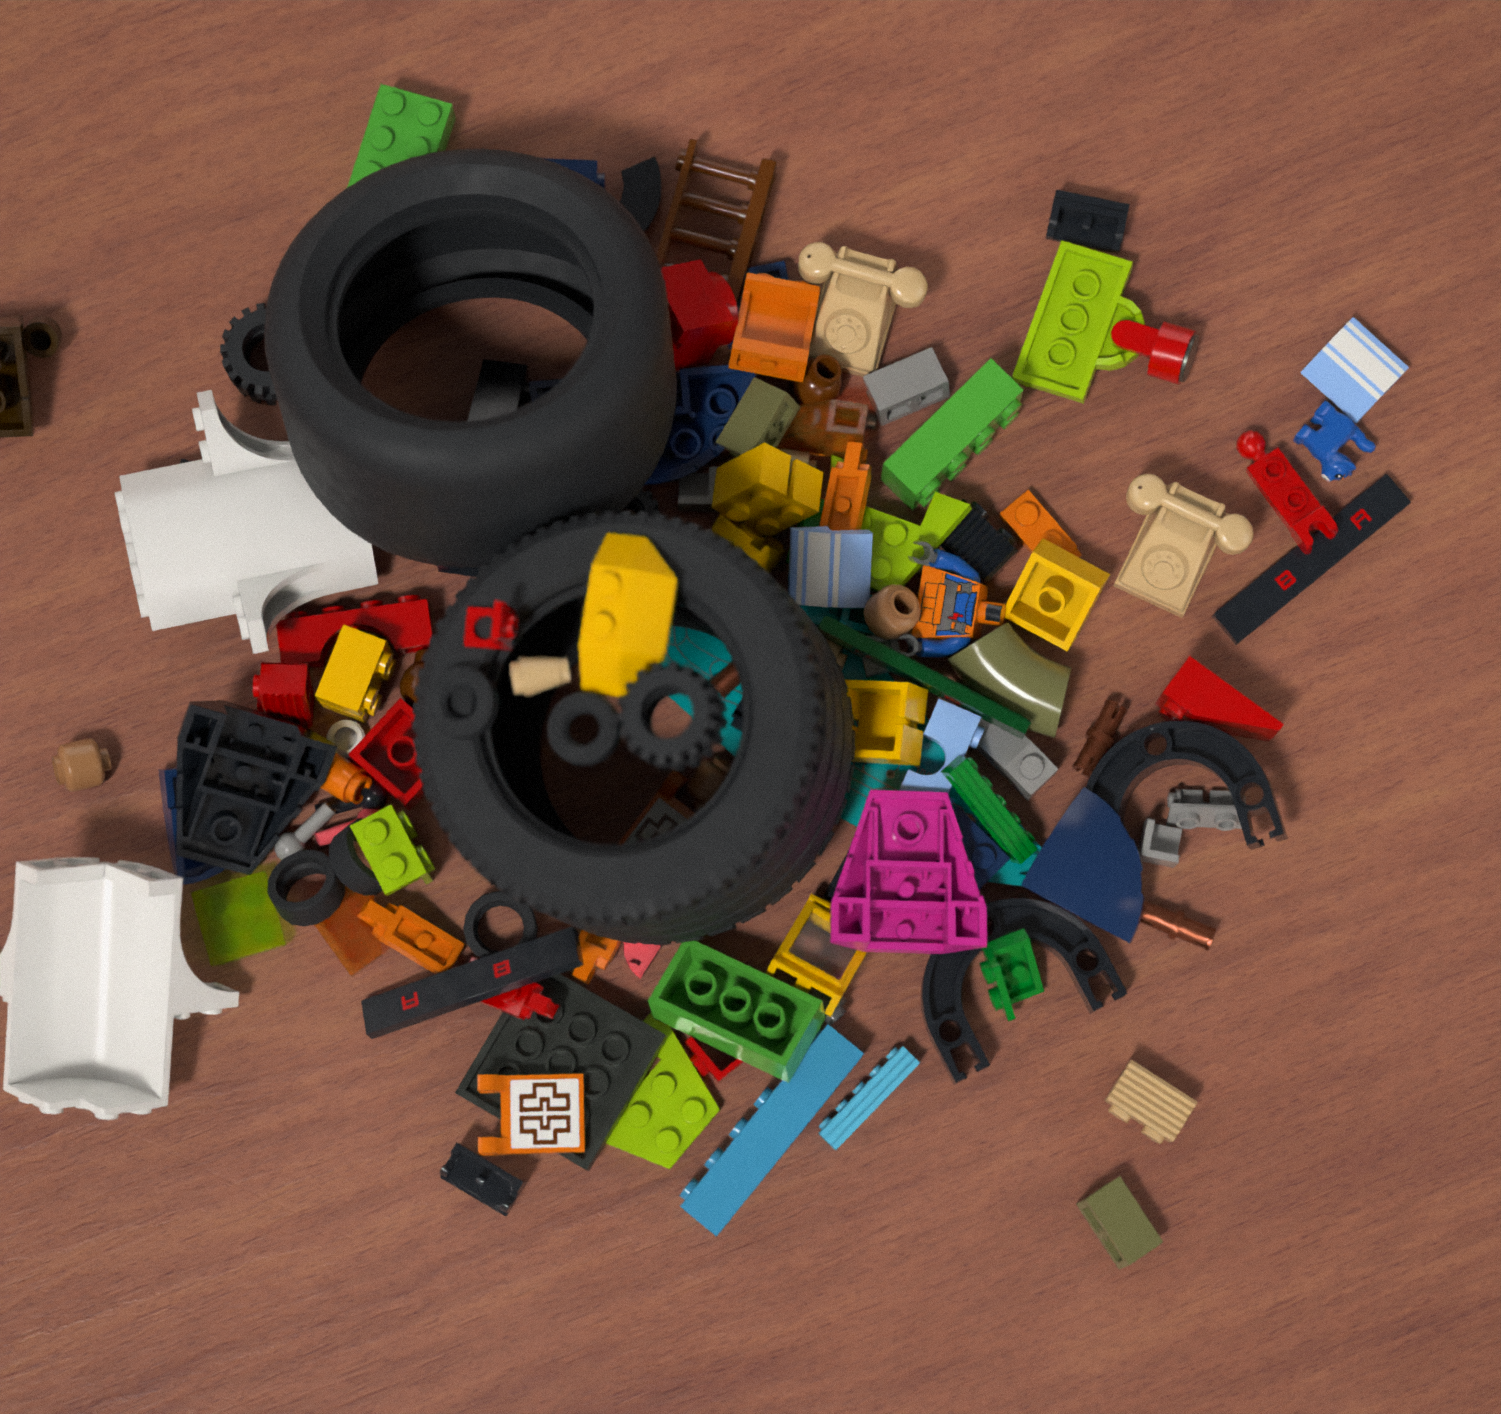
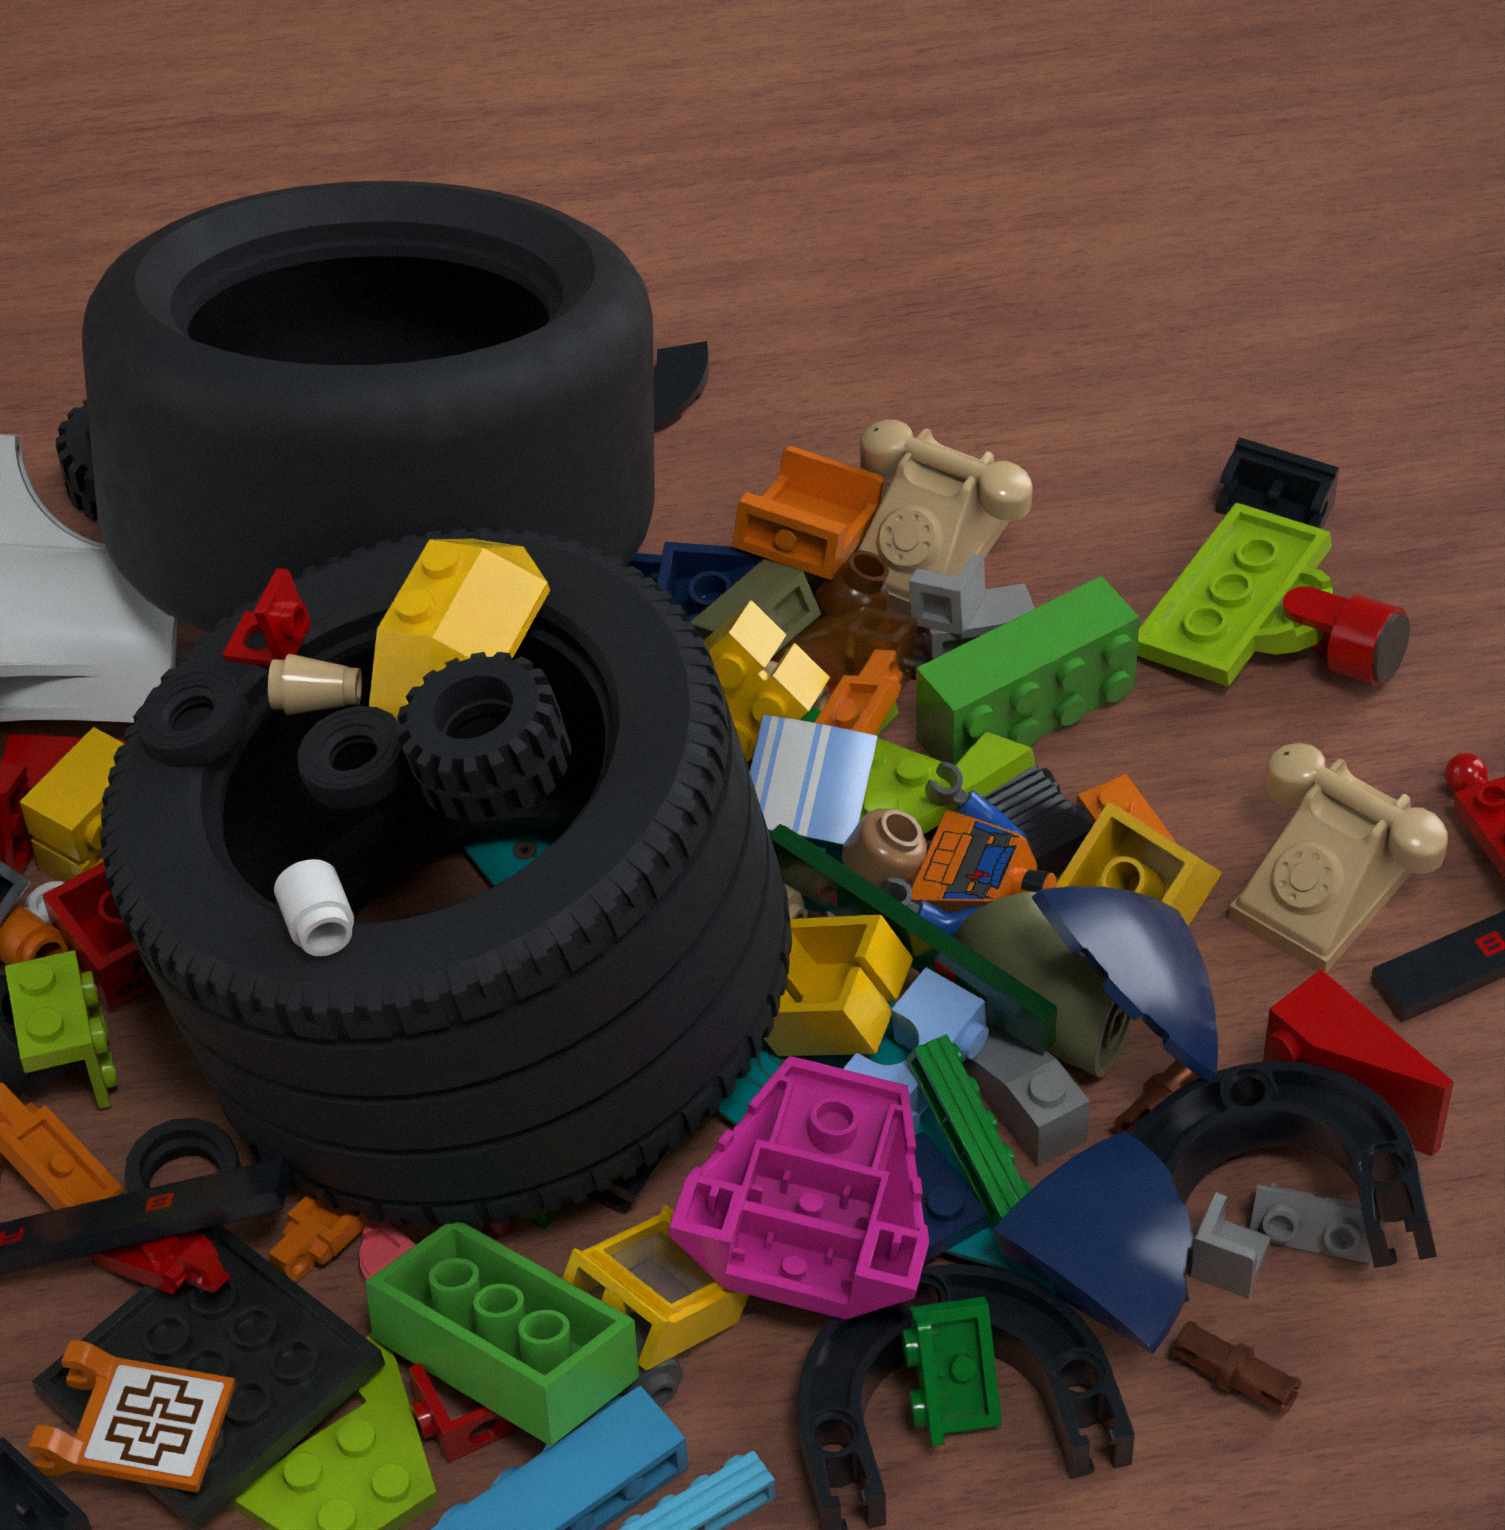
camera: 15 degrees right, 30 degrees down
(598, 856) = (314, 907): none -> white brick
(700, 312) = (698, 478): red piece -> none
(747, 215) = (813, 418): reddish brown fence -> none
(885, 381) = (947, 600): none -> light grey panel
(1081, 681) = (1148, 964): none -> dark blue brick

